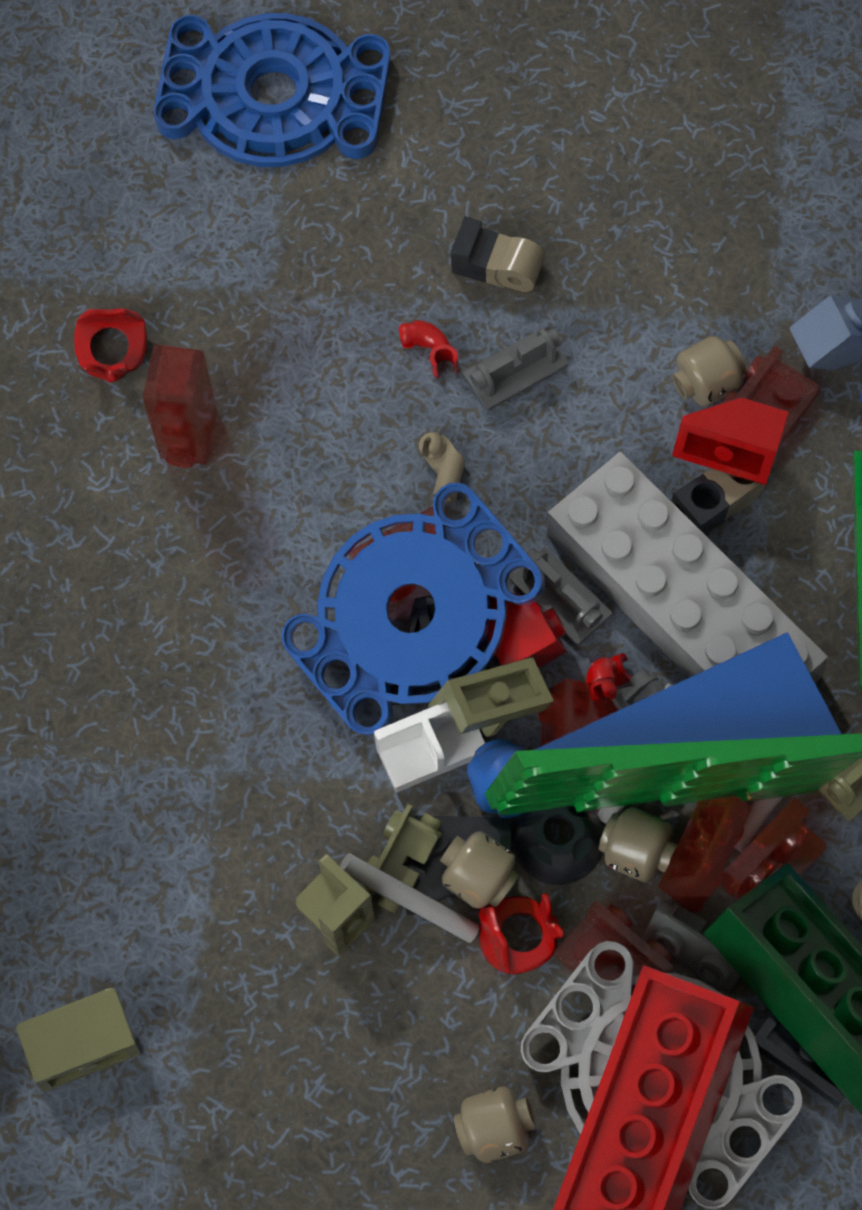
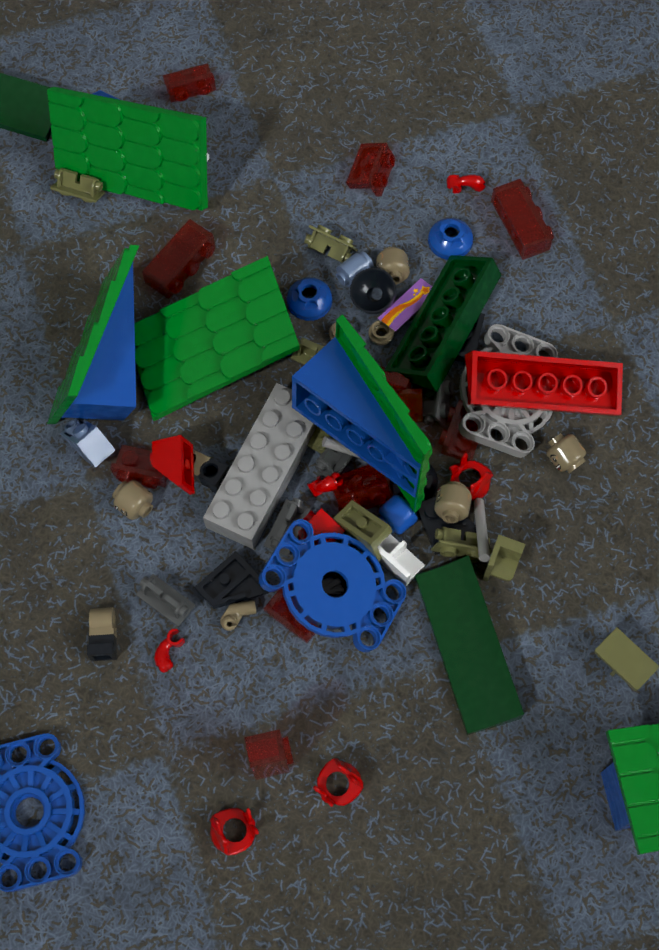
camera: 115 degrees left, 0 degrees up
(110, 533) = (351, 773): none -> red piece
(226, 800) = (469, 646): none -> dark green arch
(501, 468) = (230, 583): none -> black wing

